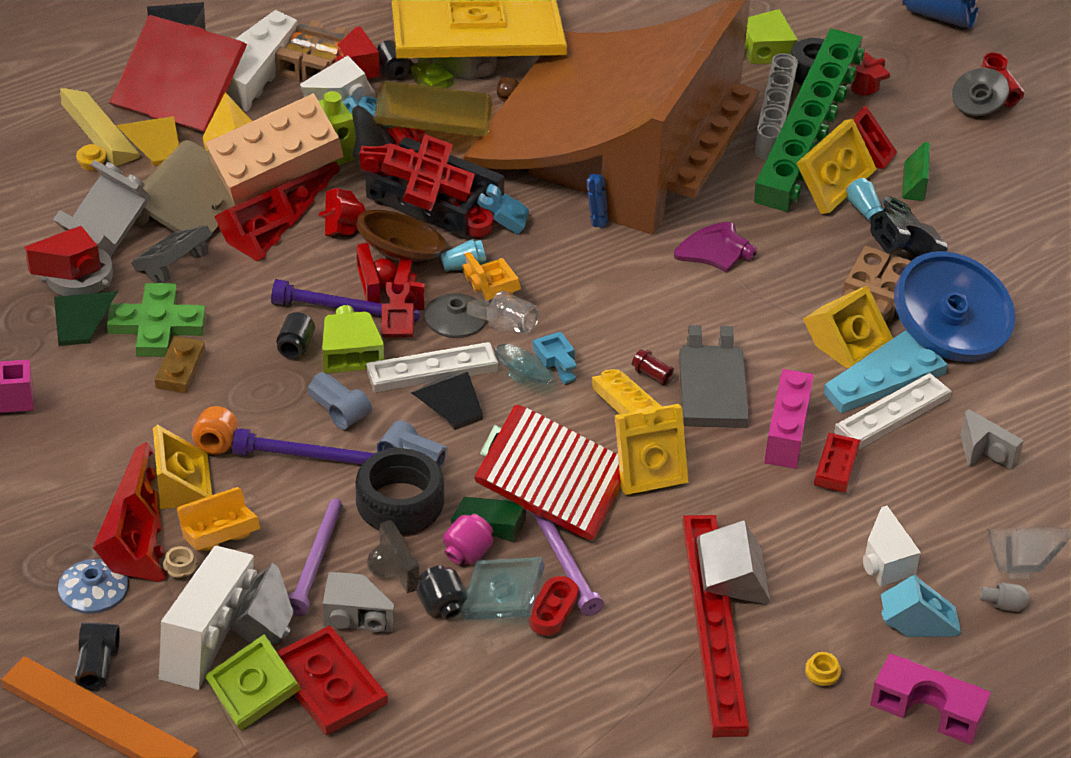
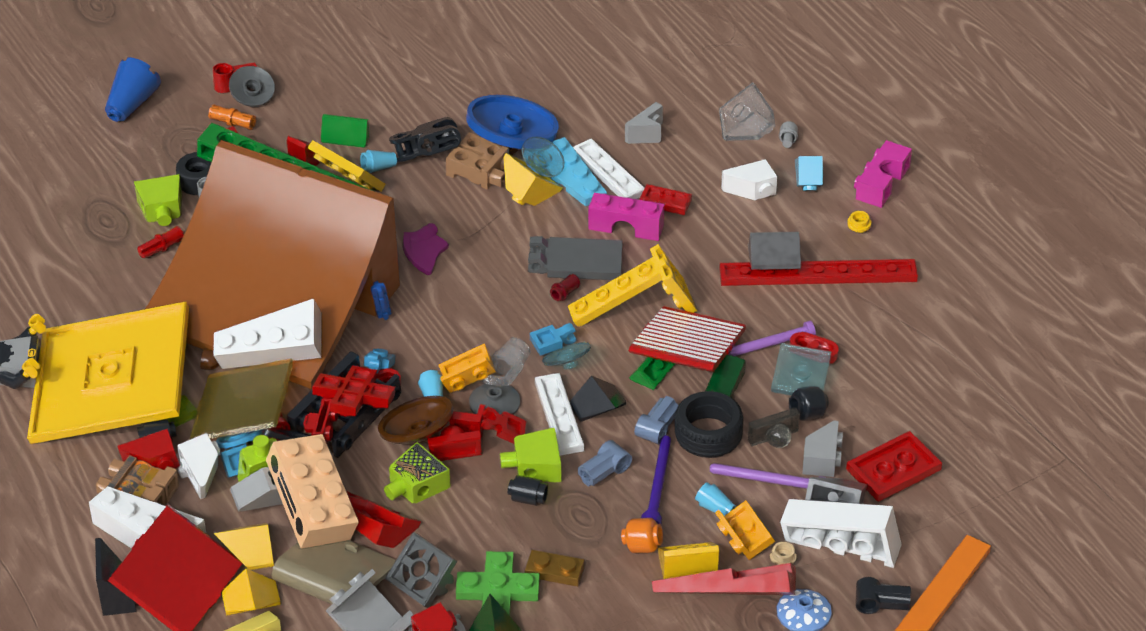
camera: 85 degrees left, 0 degrees up
(252, 682) = (909, 502): lime tile -> none
(274, 498) = (714, 499): none -> medium azure cone
(285, 293) = (471, 501): dark purple piece -> none
(323, 246) = (417, 475): none -> lime torso
(341, 212) = (374, 462): red piece -> none
(468, 539) = (755, 388): dark pink head -> none
(508, 110) = (273, 337): none -> white wedge
(888, 317) = (543, 156): none -> clear light blue dish
(927, 86) = (232, 117): none -> orange pin

